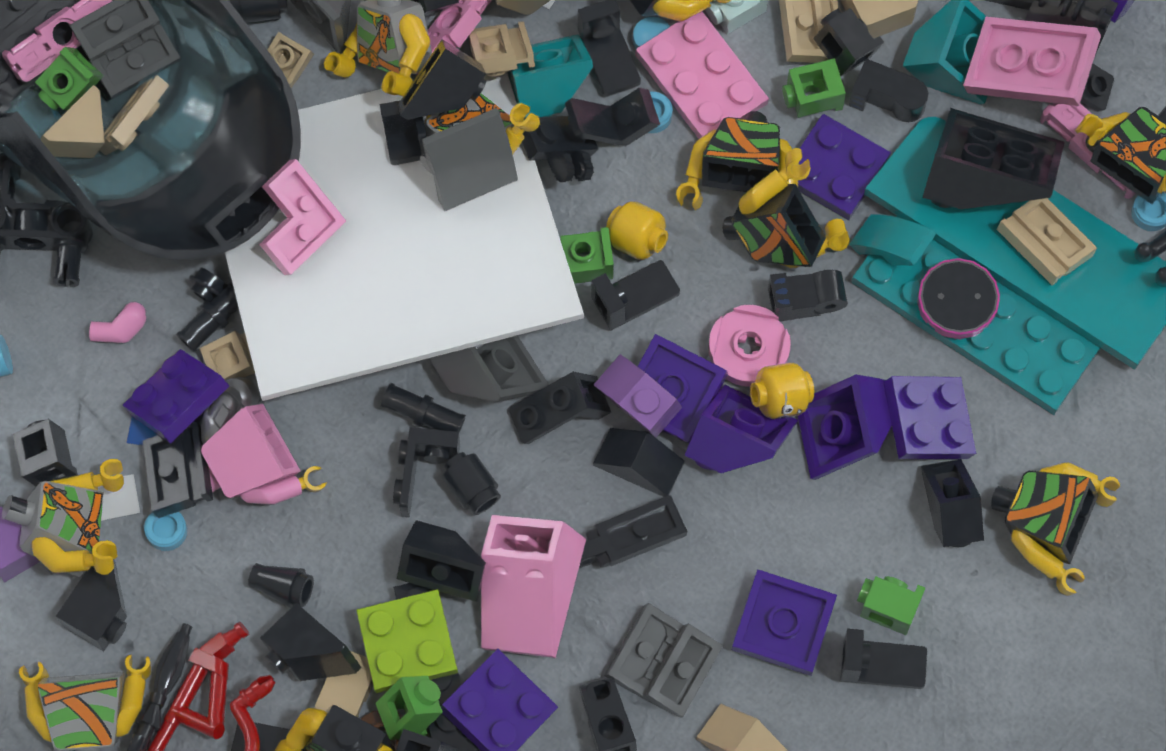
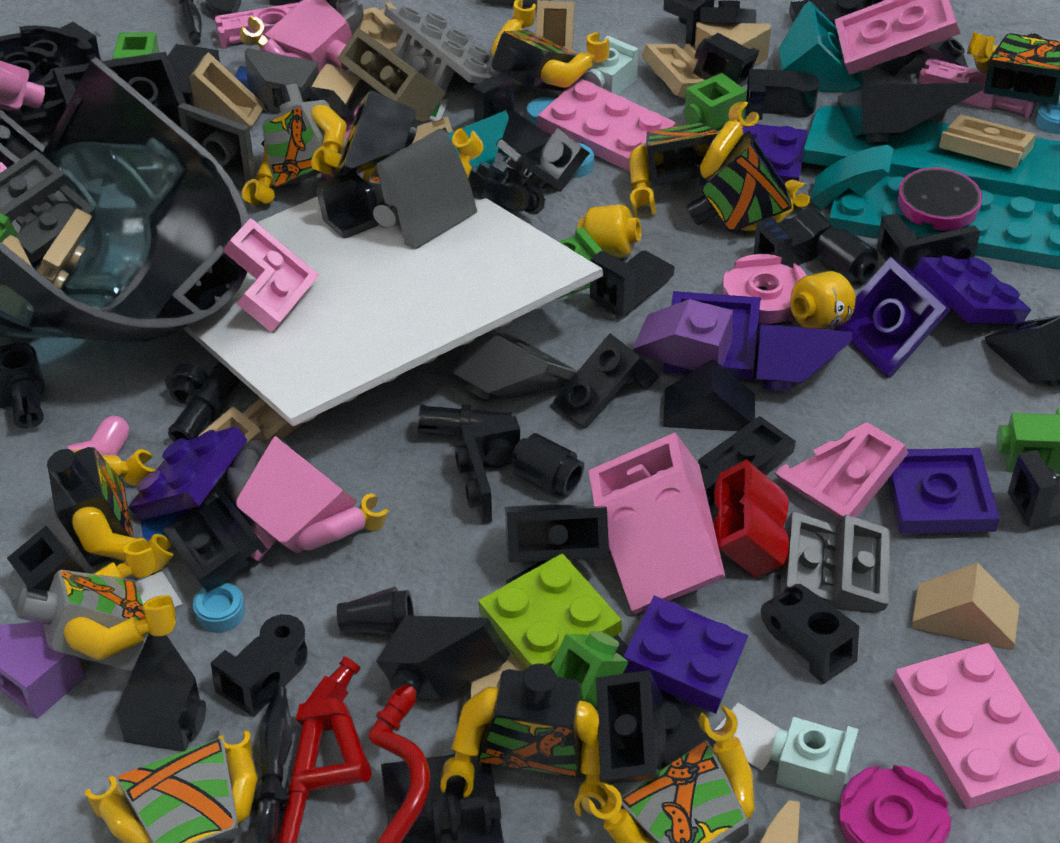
camera: 20 degrees left, 25 degrees down
(92, 403) = (94, 502): none -> torso
(182, 601) = (262, 665): none -> black leg
(607, 603) = (751, 519): none -> red brick
(710, 580) = (846, 471): none -> bright pink wing
(842, 332) = (847, 255): none -> black brick
(909, 359) = (901, 244): none -> black bracket

